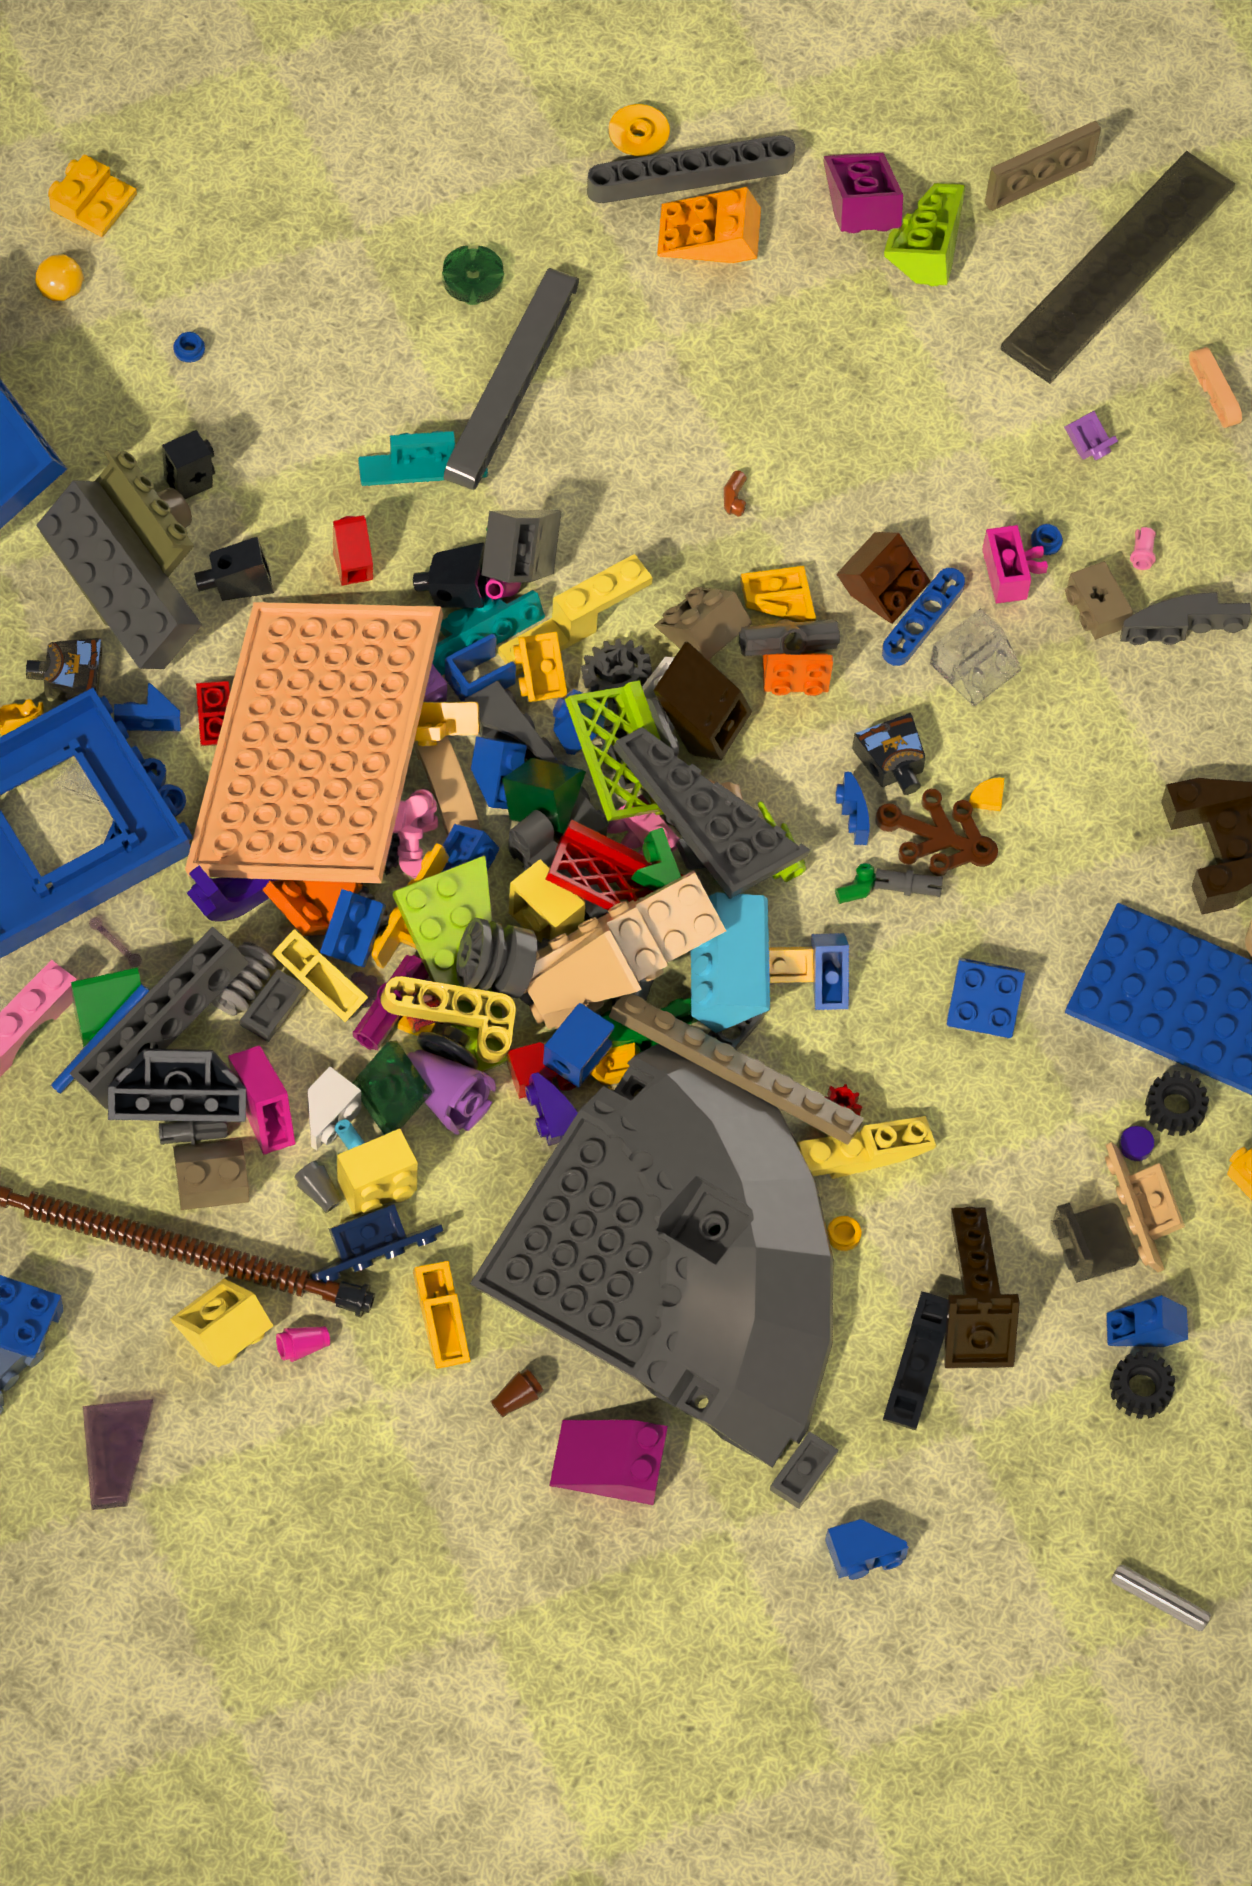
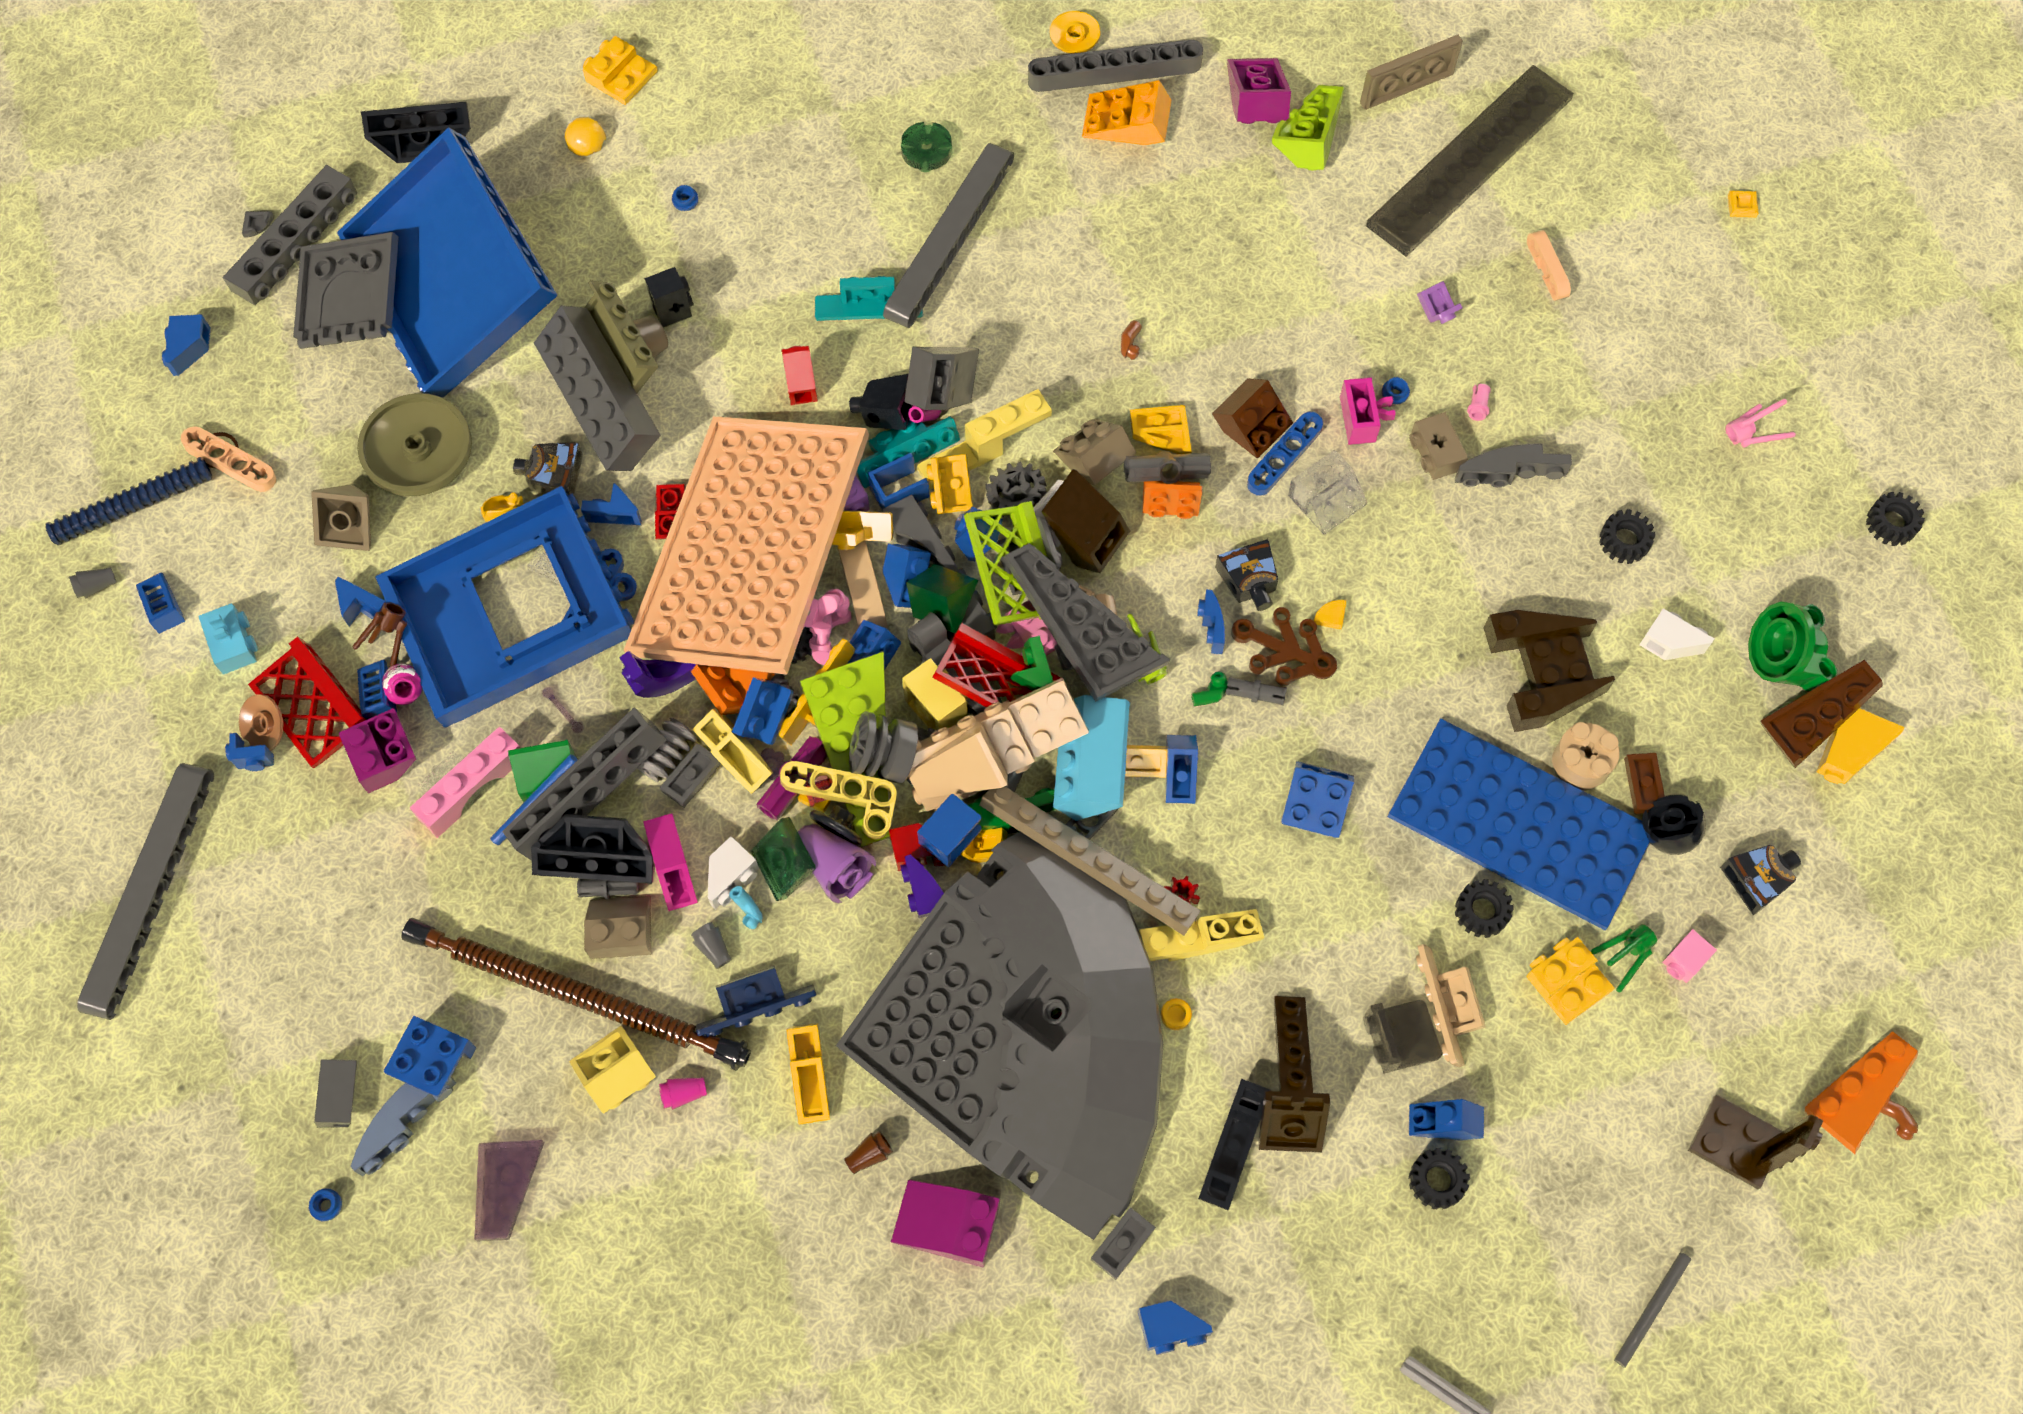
camera: 10 degrees right, 5 degrees up
(237, 571) = (701, 389): black torso -> none
(377, 1173) = (762, 938): light yellow brick -> none
(1136, 1143) = (1445, 943): dark purple tile -> none

